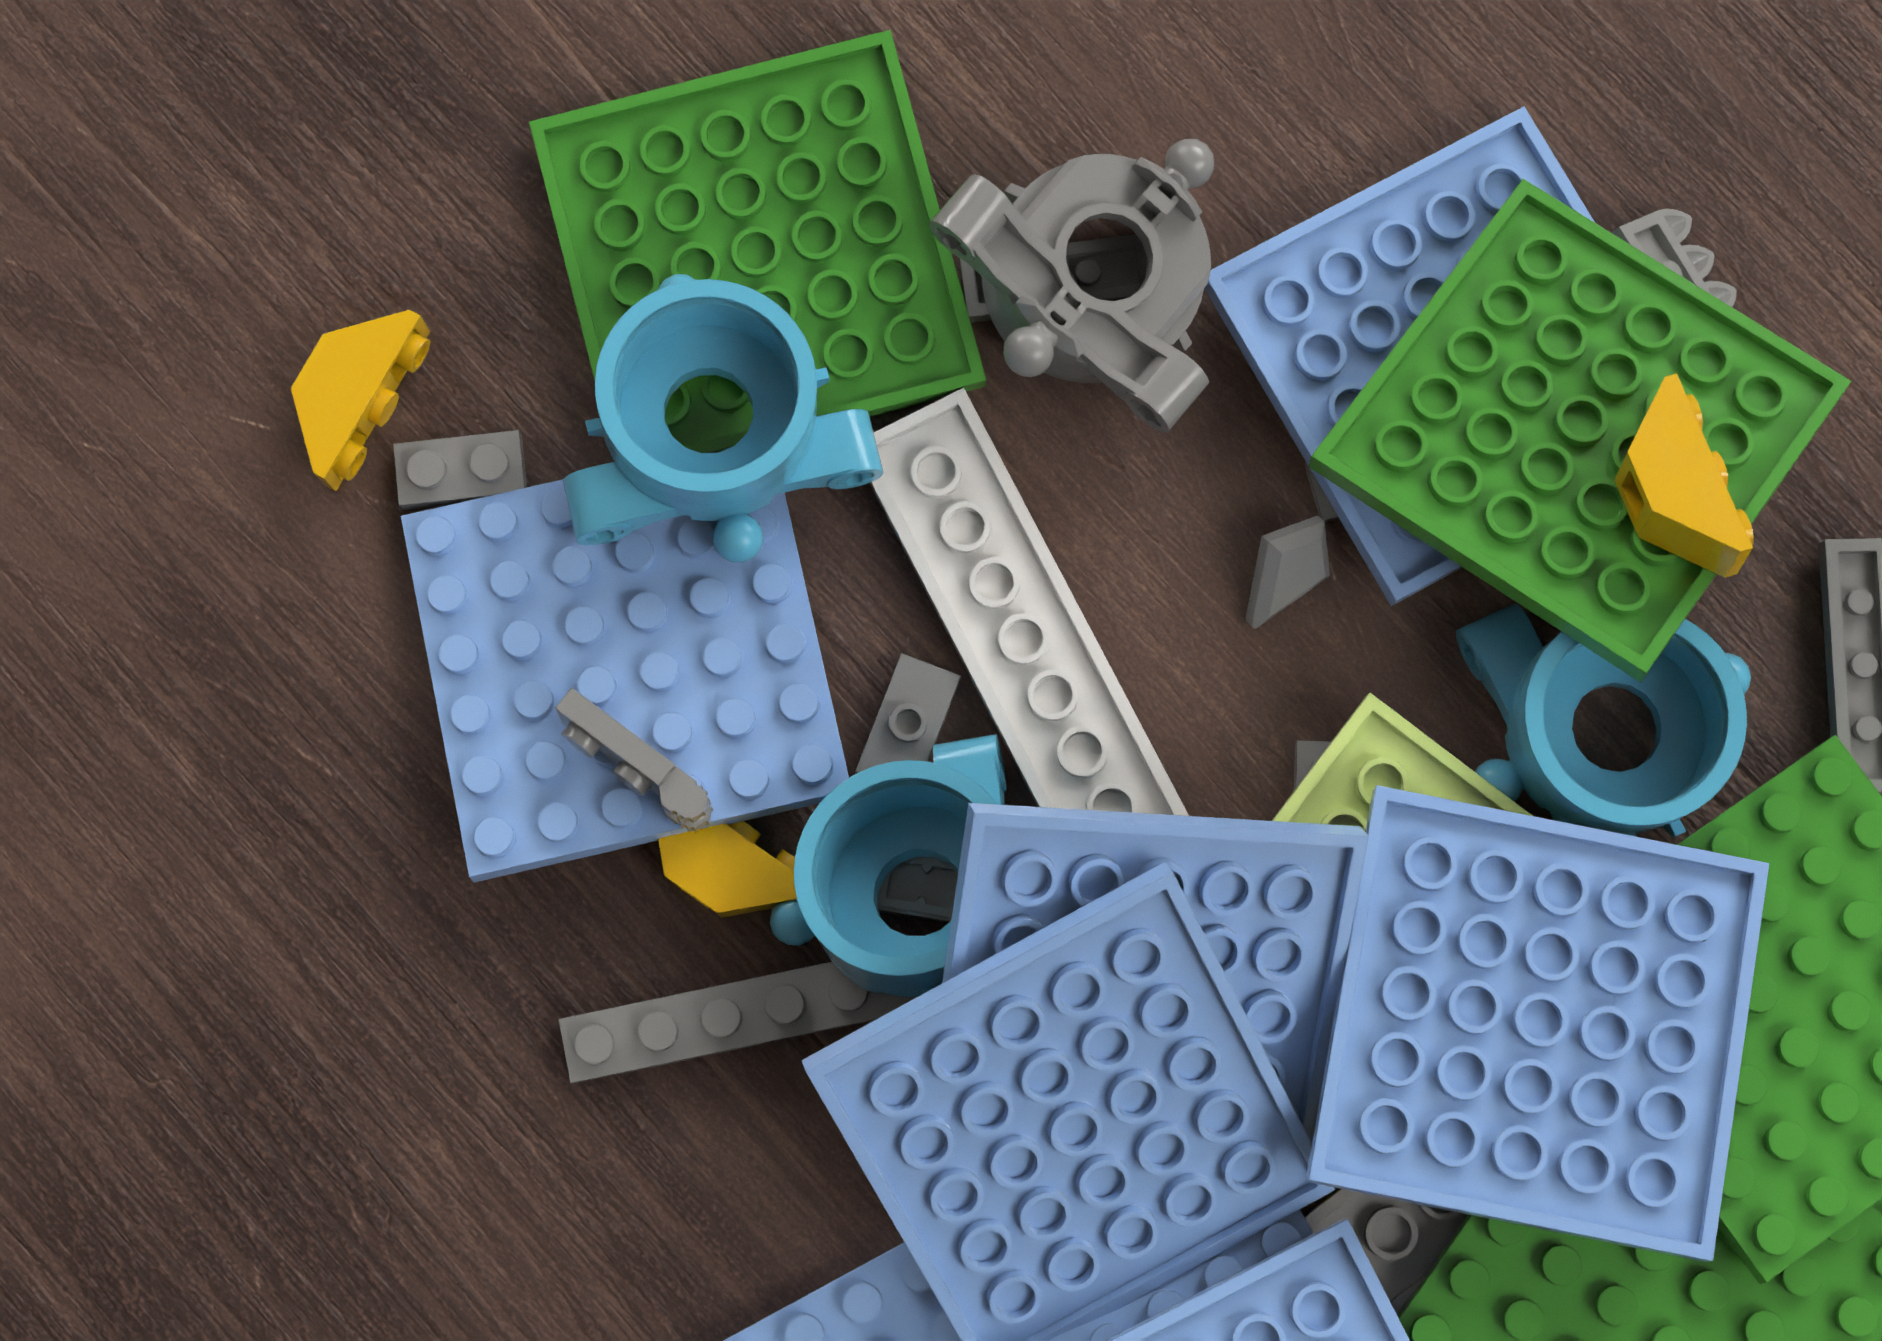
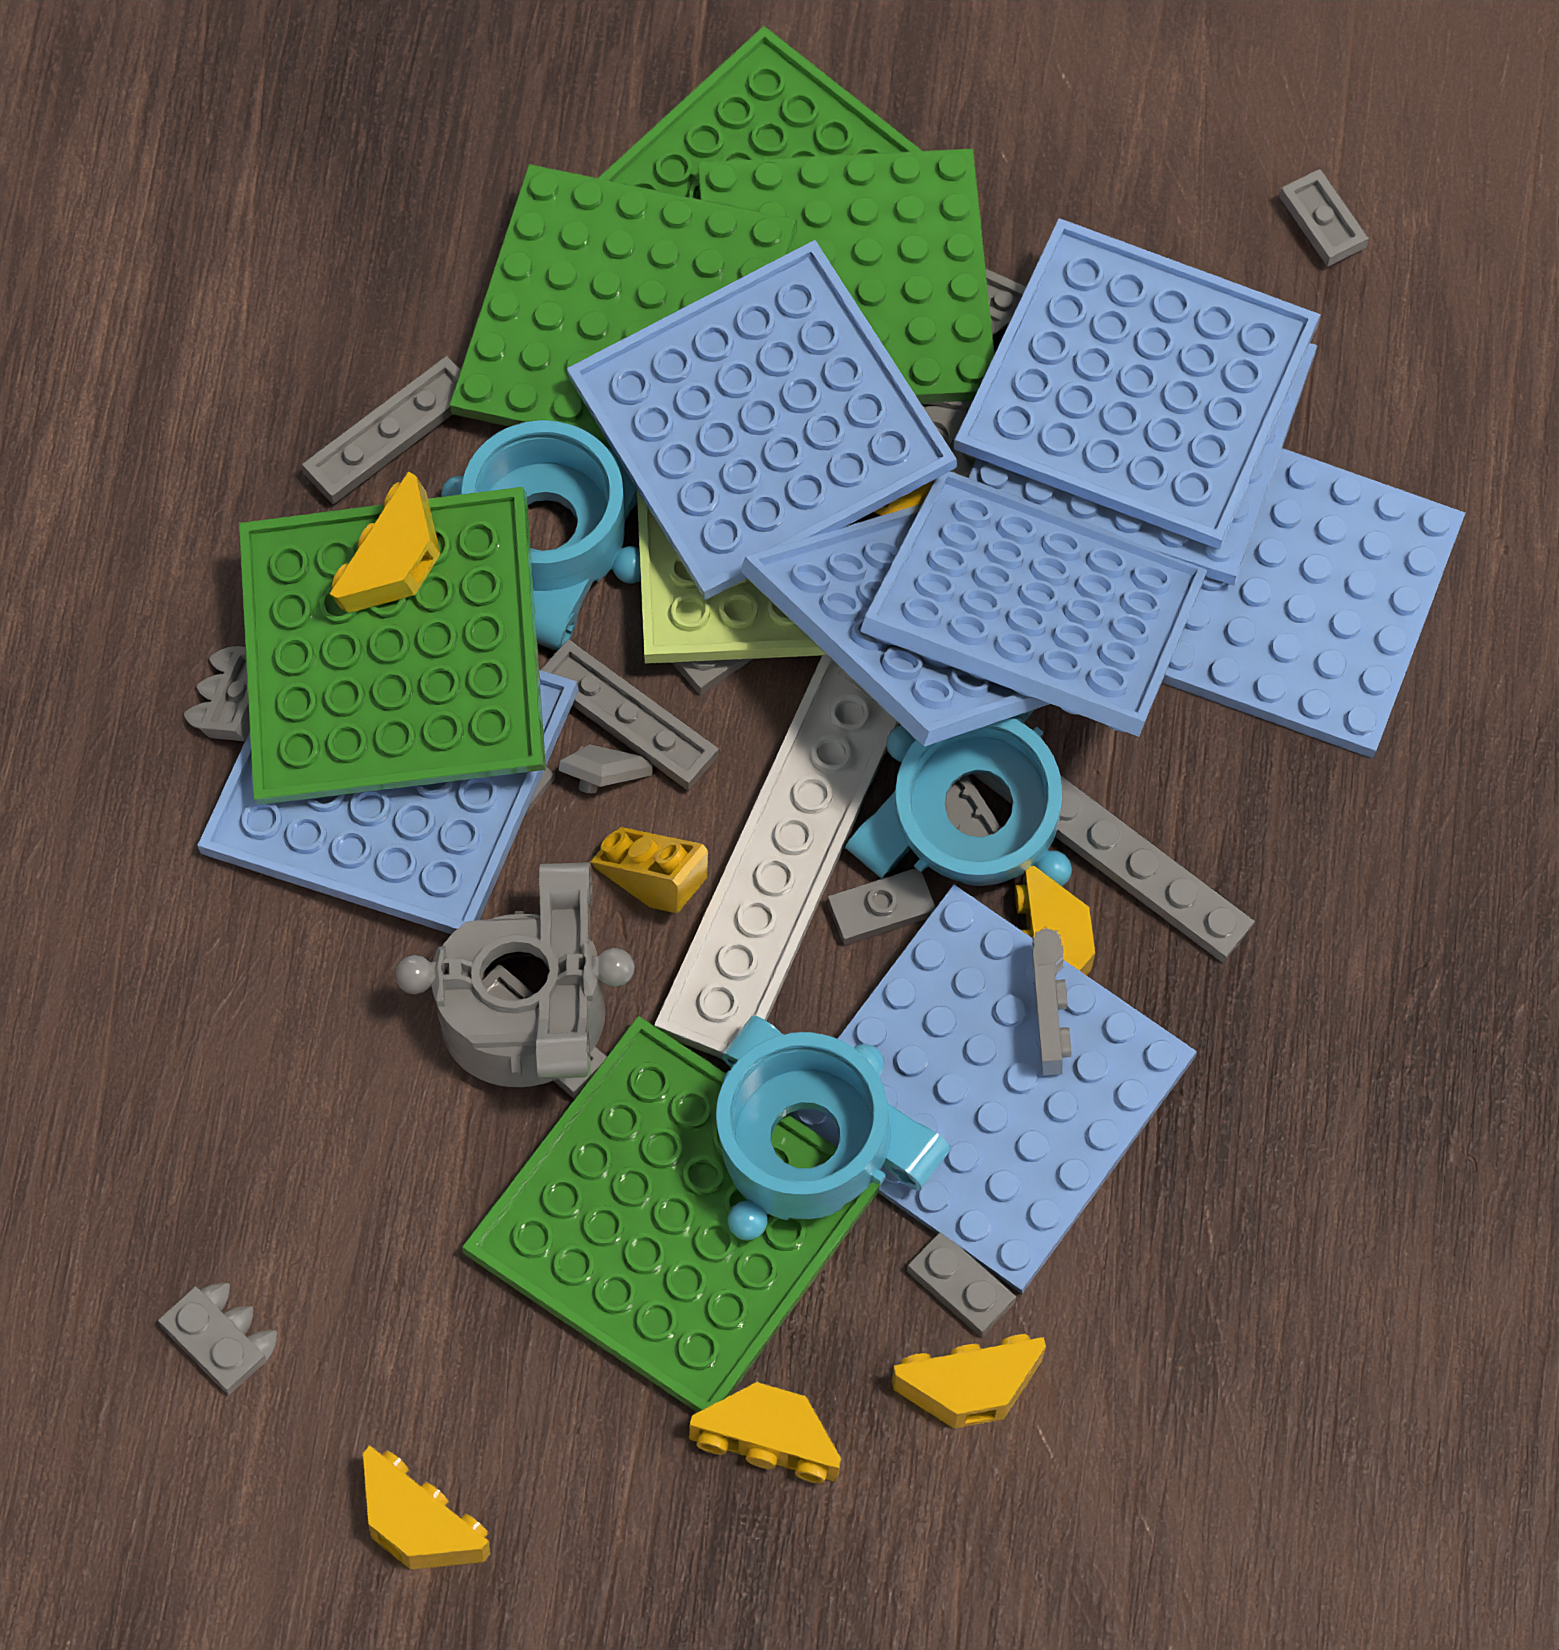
camera: 135 degrees left, 15 degrees down
(469, 165) = (770, 1431): none -> yellow slope
(1133, 518) = (653, 867): none -> yellow slope
(1326, 643) = (634, 717): none -> light grey plate

